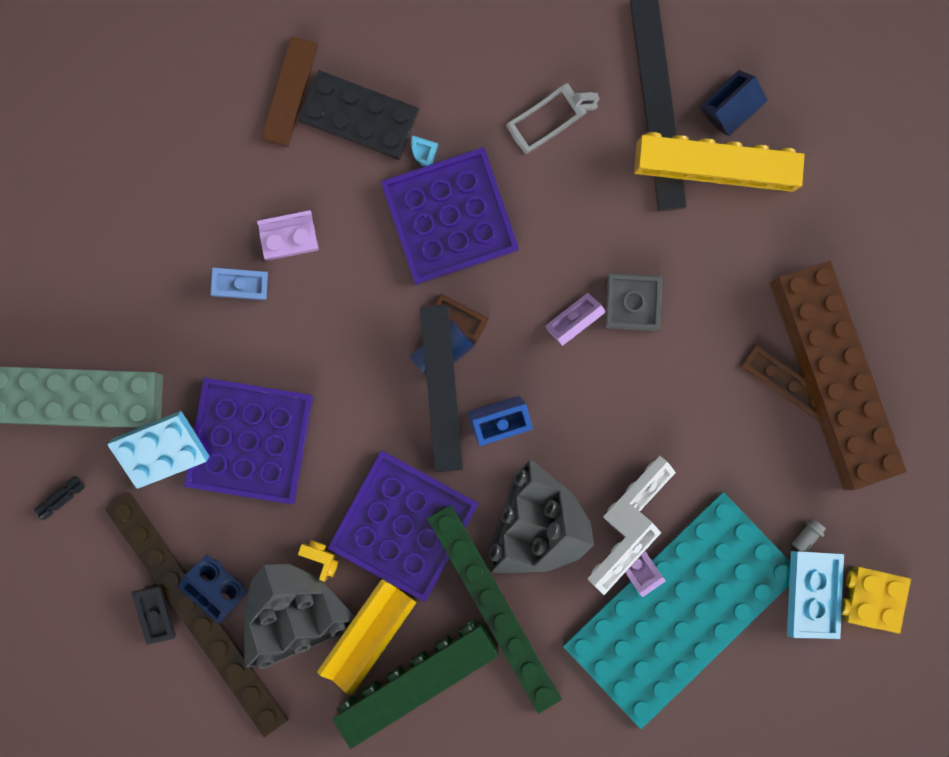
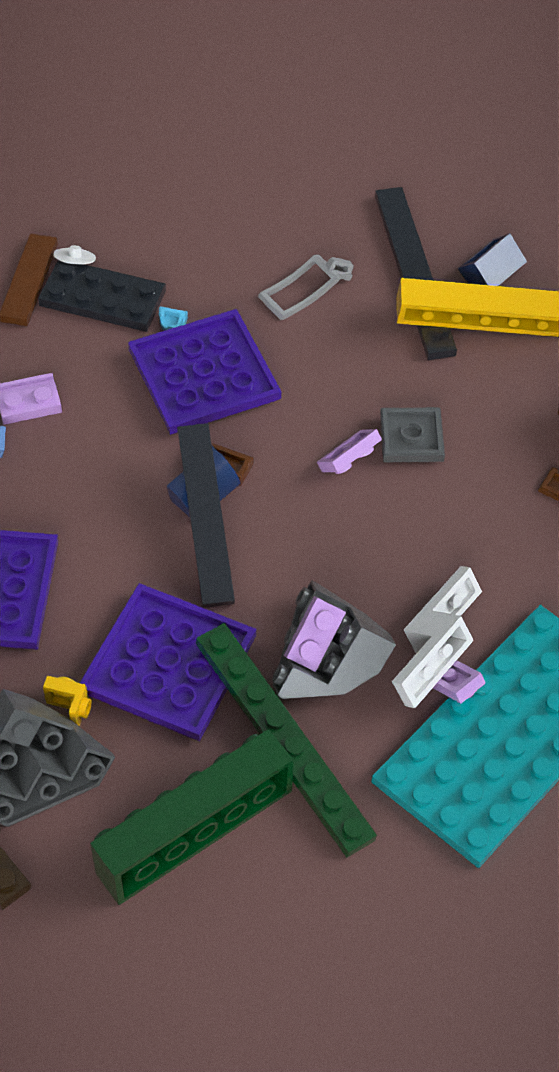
camera: 10 degrees left, 30 degrees down
(333, 67) = (74, 255): none -> white piece
(367, 636) = (127, 774): yellow panel -> none
(500, 420) = (274, 542): blue brick -> none
(527, 525) = (314, 634): none -> lavender plate

